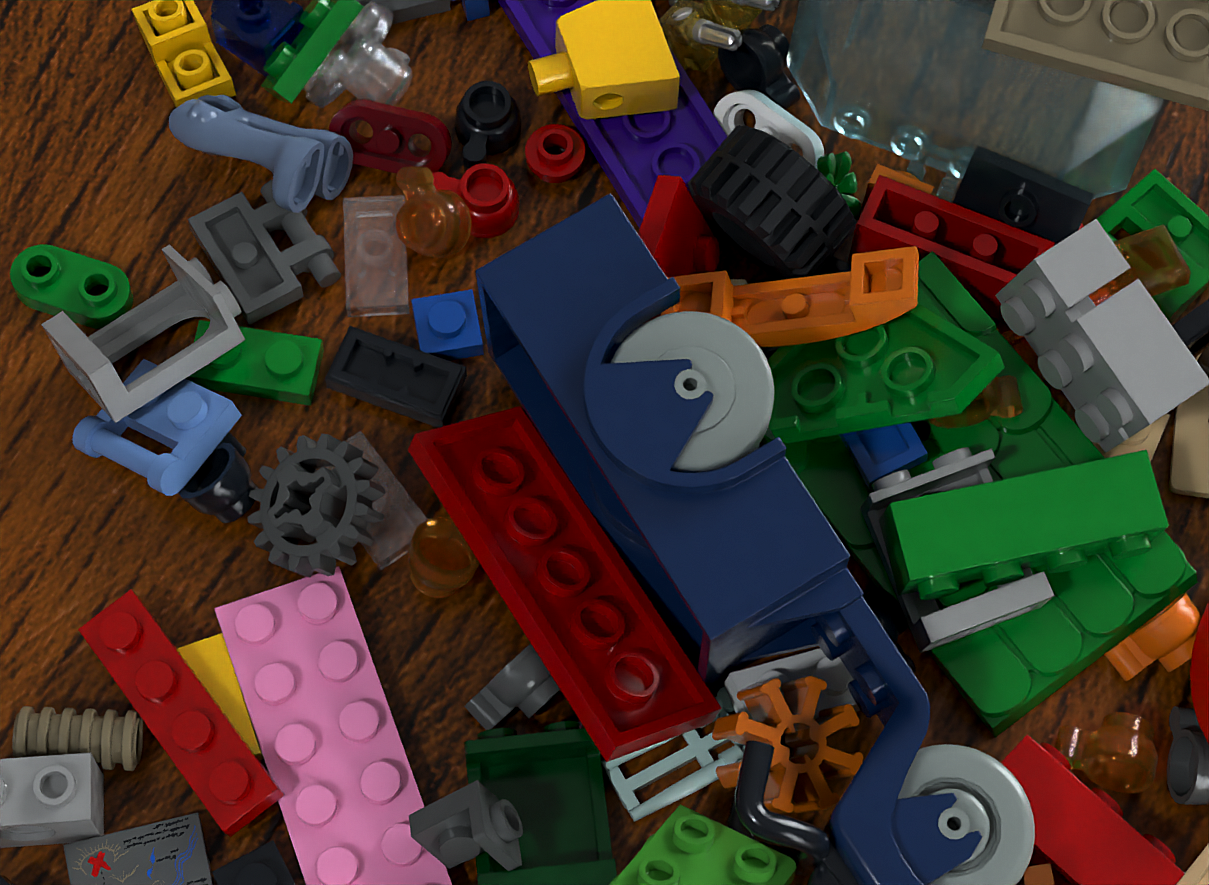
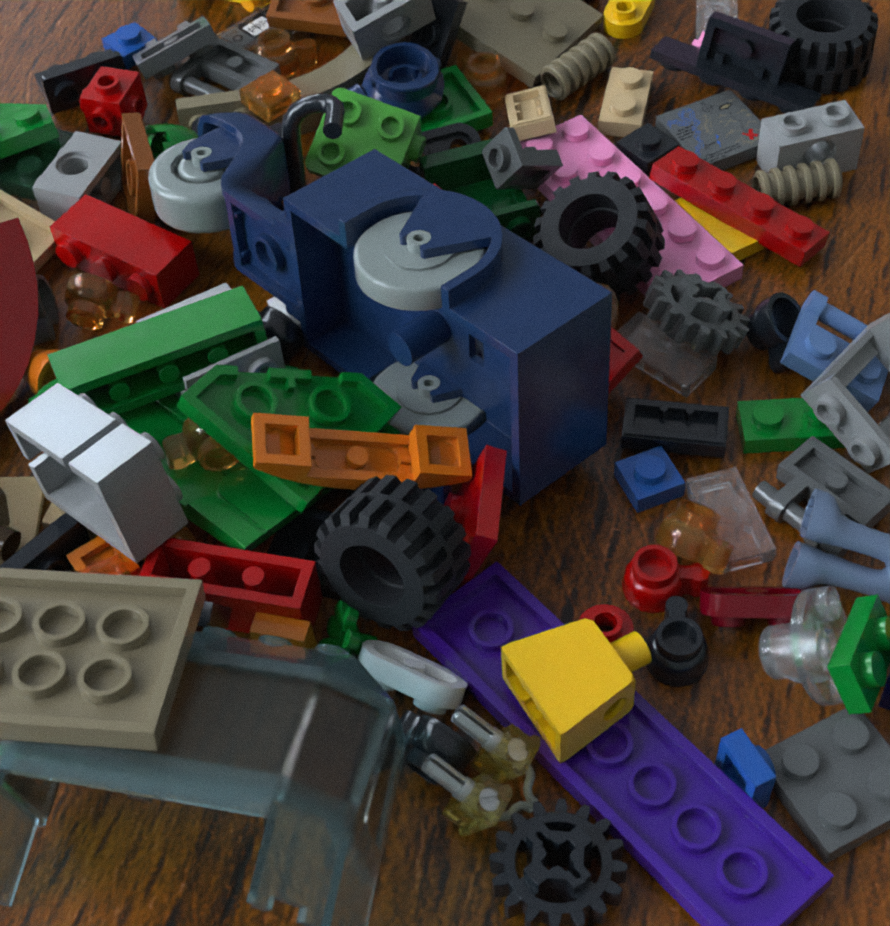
camera: 175 degrees right, 15 degrees down
(376, 684) = (591, 207): none -> black tyre

